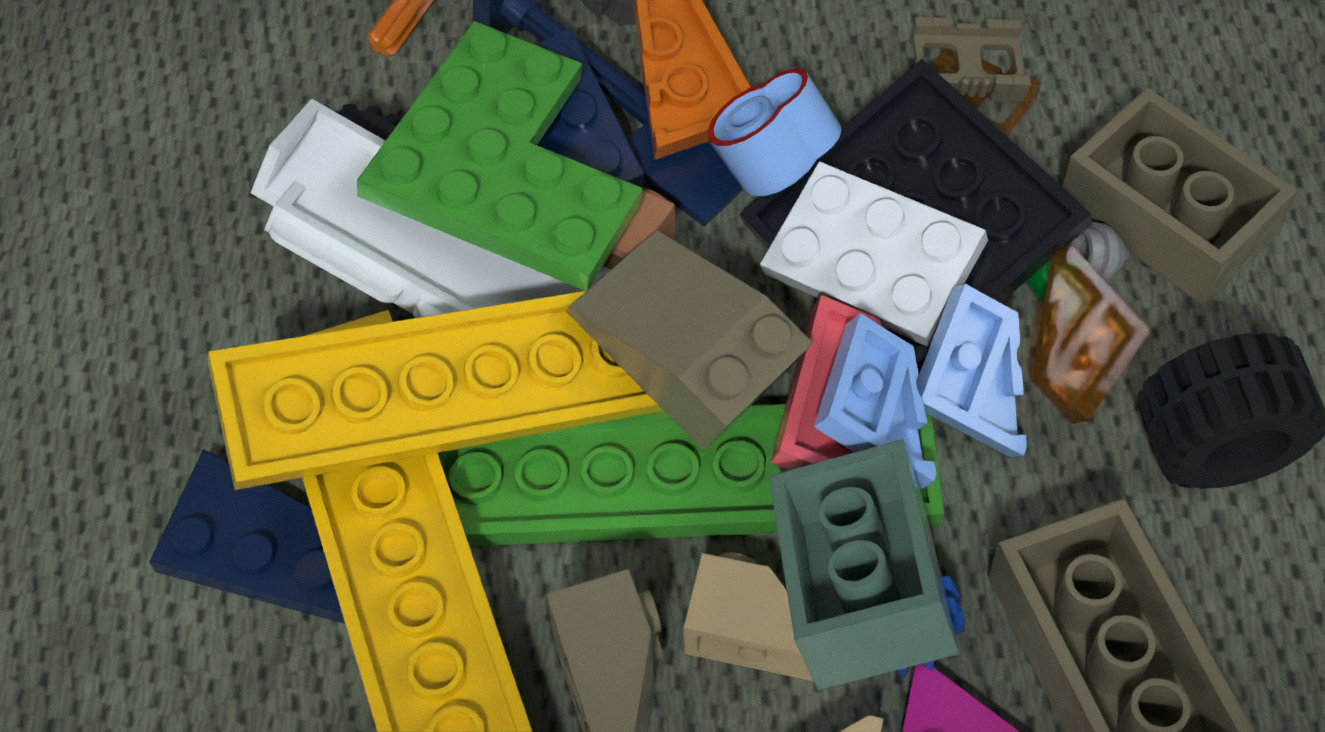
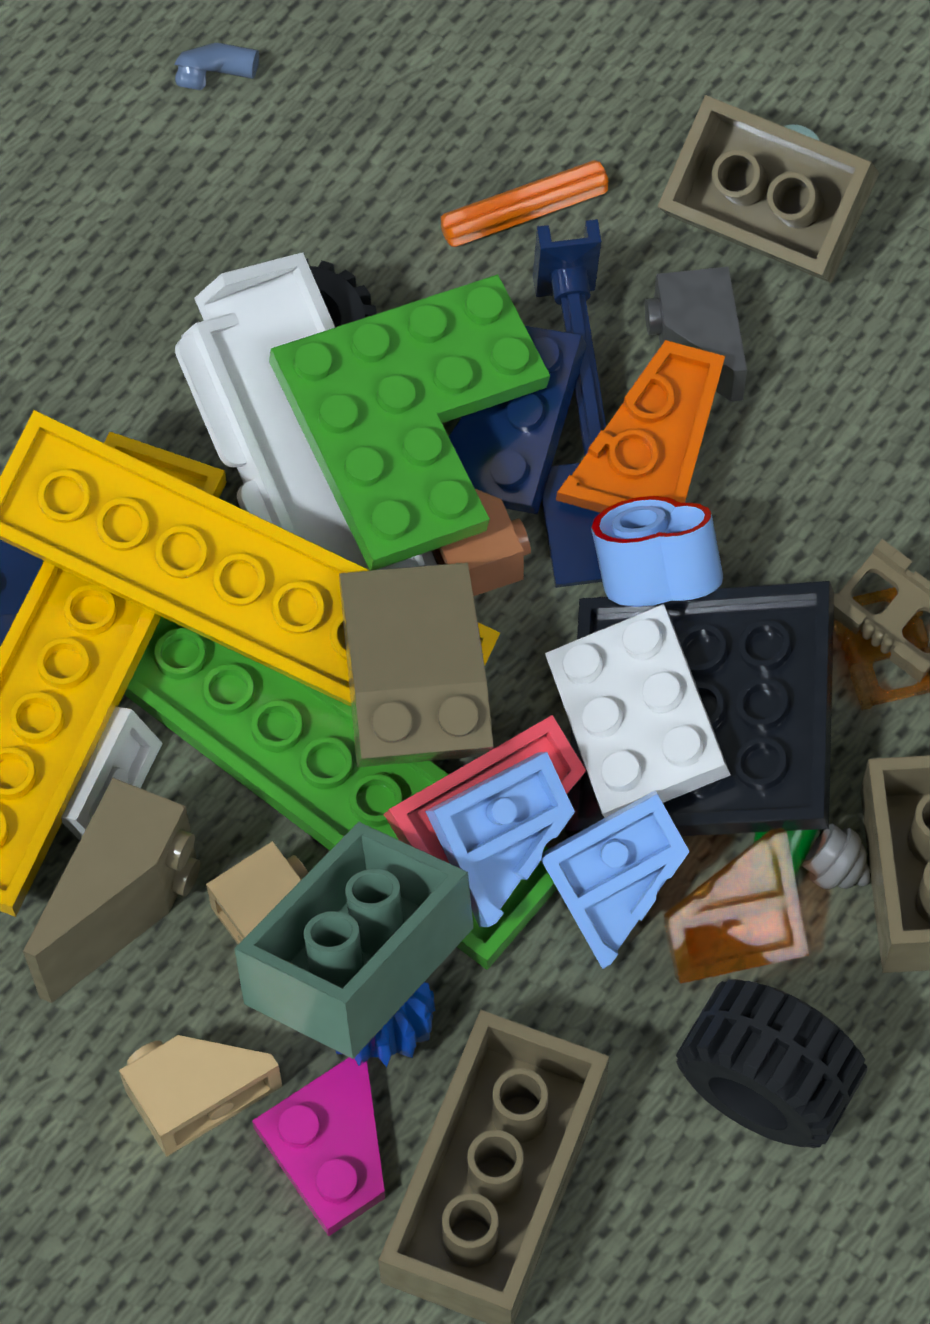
camera: 40 degrees right, 5 degrees up
(79, 46) = (215, 58): none -> sand blue arm
(517, 616) = (122, 753): none -> white plate

